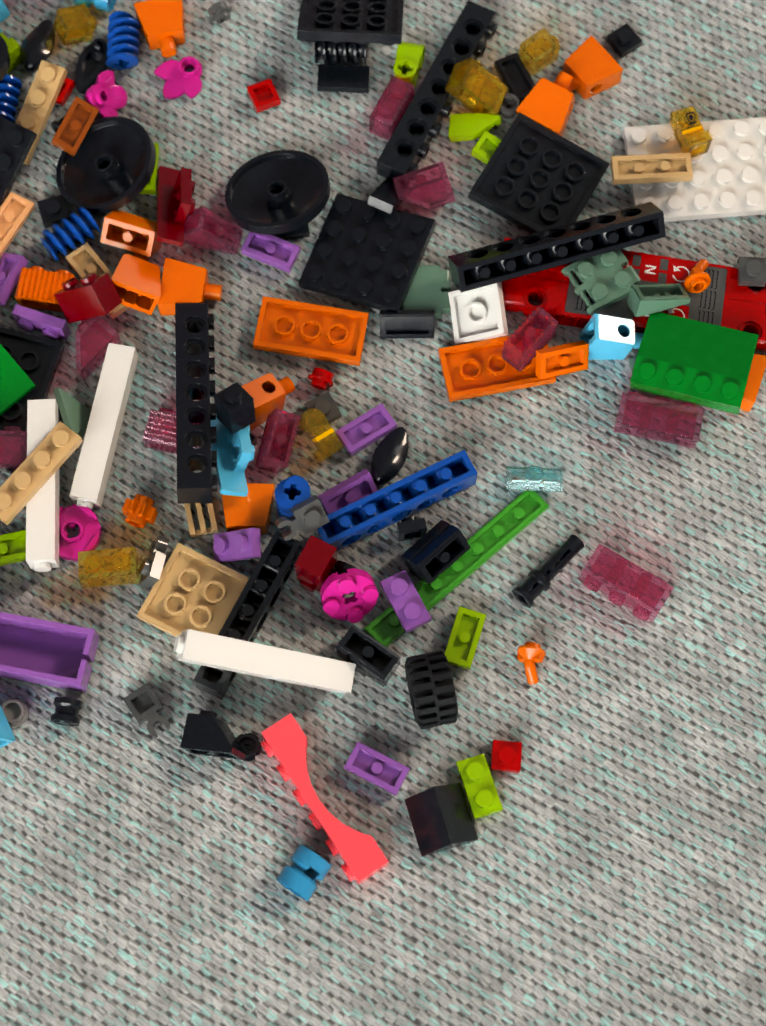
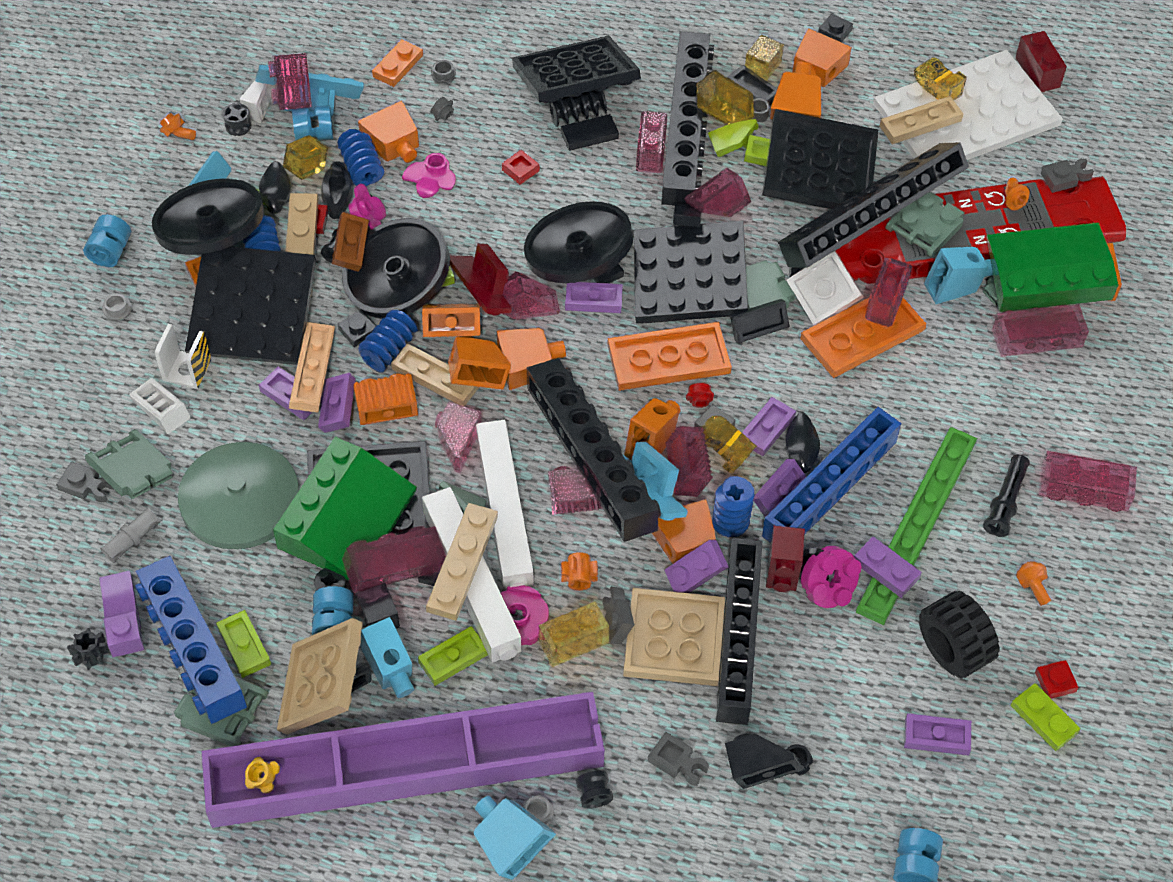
camera: 20 degrees left, 15 degrees down
(49, 325) = (393, 429): medium lavender plate -> none
(87, 297) = (439, 385): dark red brick -> none
(203, 530) = (612, 539): tan tile -> none
(234, 408) = (641, 433): black brick -> none
(264, 661) = (783, 661): white brick -> none
(306, 516) = (760, 512): dark grey plate -> none
(356, 849) = (957, 818): coral arch -> none
(368, 655) = (878, 627): black brick -> none
(409, 61) = (645, 97): lime piece -> none
(411, 528) = (858, 499): black plate -> none
(435, 551) = (894, 510): black brick -> none
(440, 818) = (1023, 761): black slope -> none
(464, 637) = (959, 574): lime plate -> none
(534, 479) = (951, 418): clear light blue plate -> none
(562, 359) = (925, 302): orange plate -> none
(656, 298) = (984, 223): sand green slope -> none

